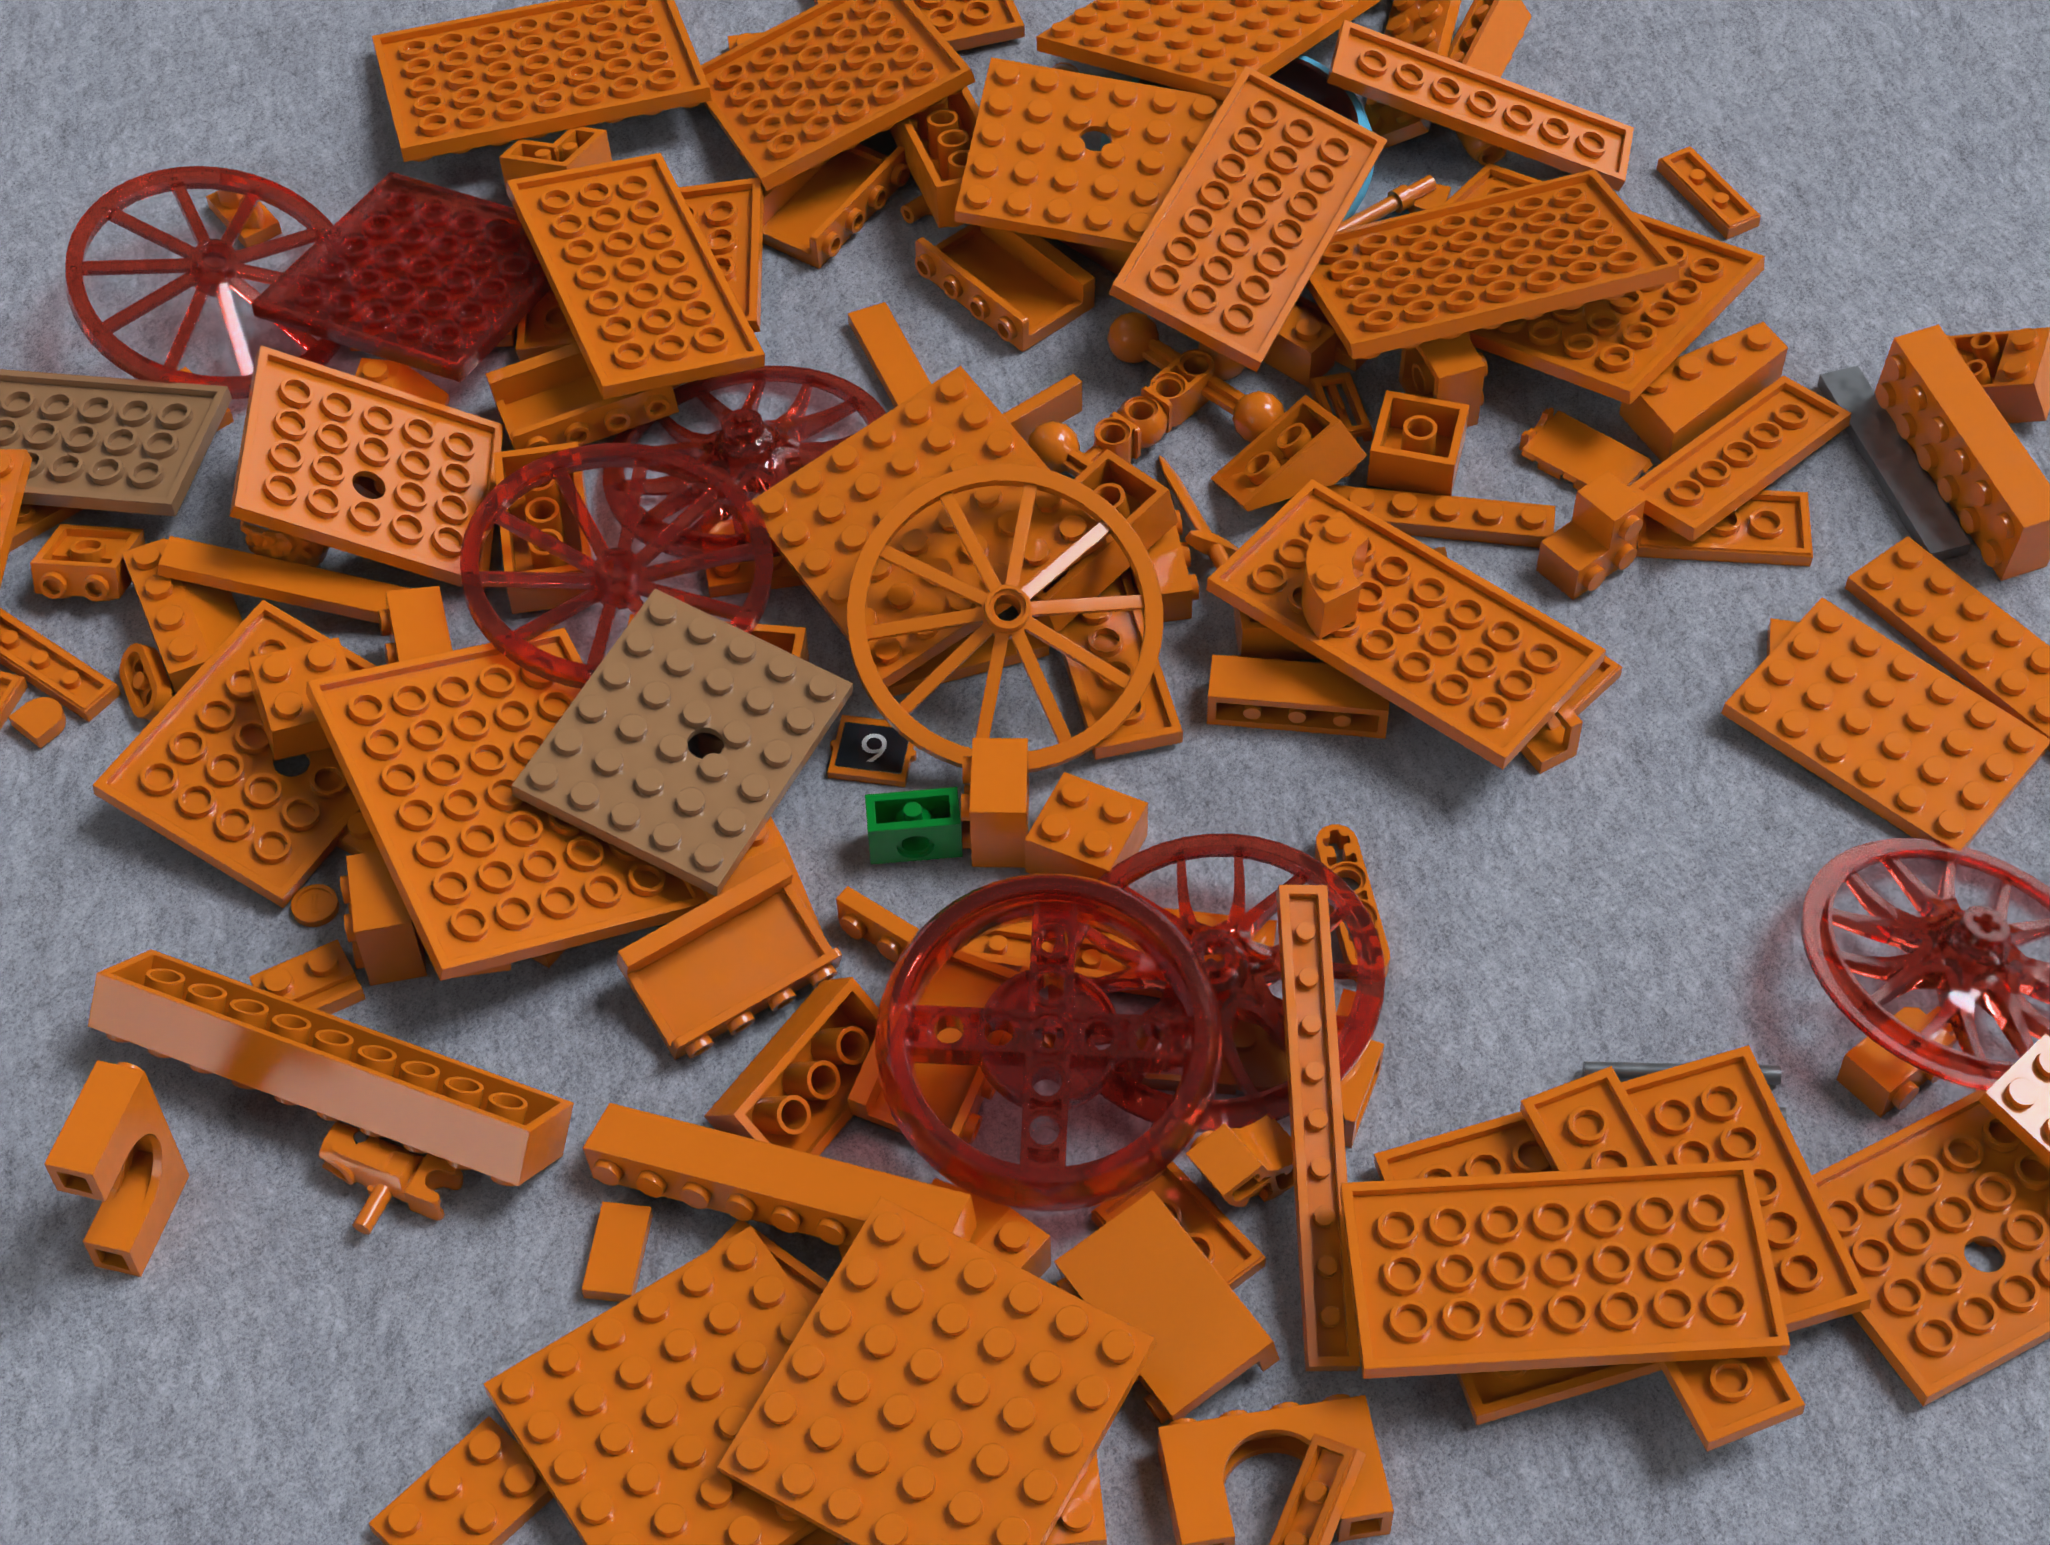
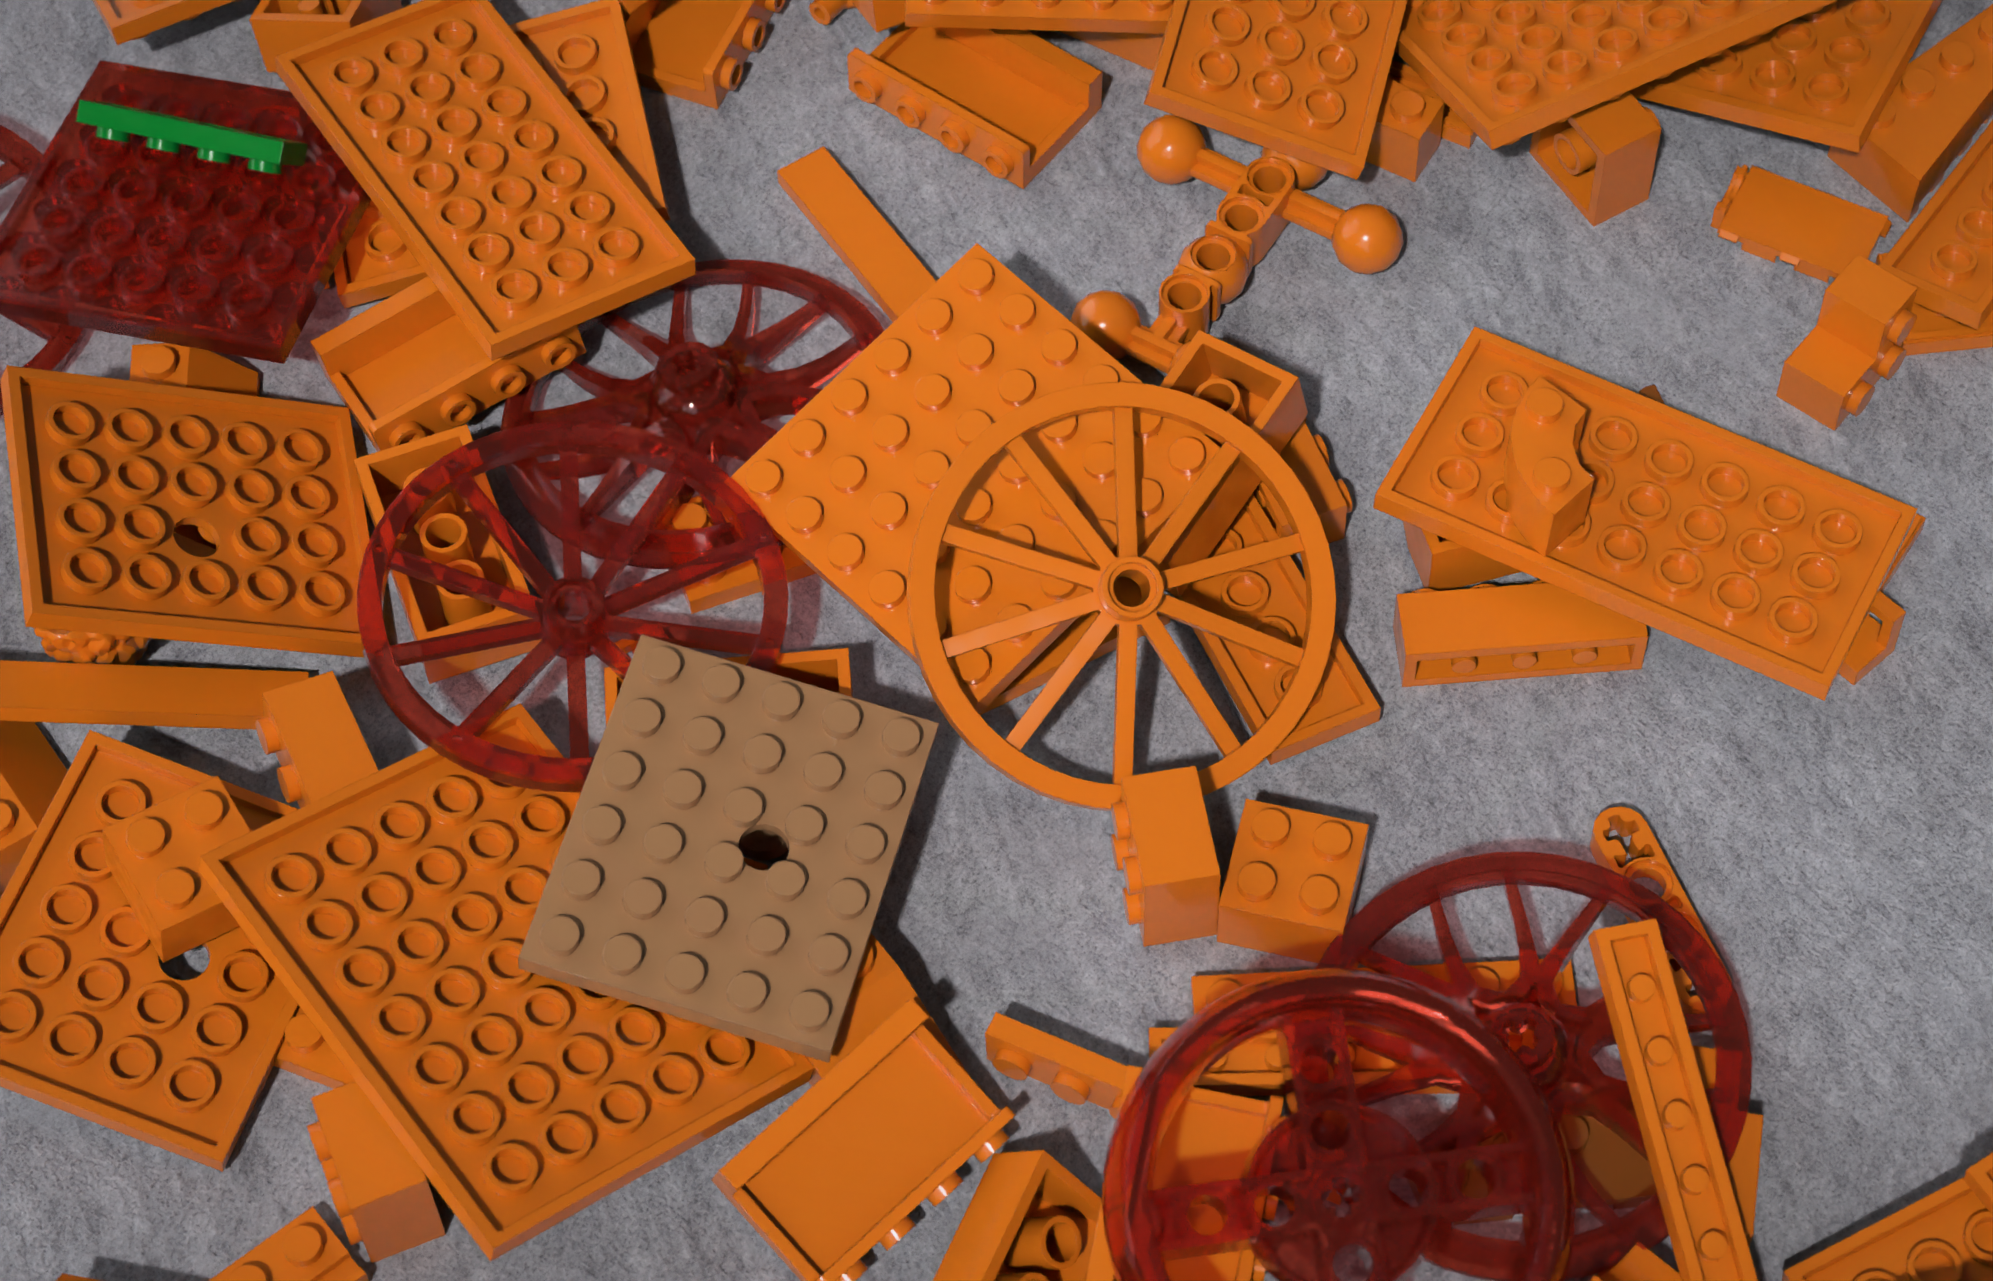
camera: 10 degrees left, 5 degrees up
(315, 905) = (265, 1159): orange piece -> none
(448, 229) = (169, 132): none -> green plate
(870, 752) = (968, 805): piece -> none
(914, 825) = (1060, 907): green brick -> none
(1052, 404) = (1083, 267): orange tile -> none
(1202, 538) = (1338, 428): orange sword -> none
(1288, 454) = (1426, 293): orange slope -> none
(1363, 427) = (1484, 240): orange tile -> none
(1417, 444) = (1588, 247): orange brick -> none
(1456, 516) = (1640, 337): orange plate -> none

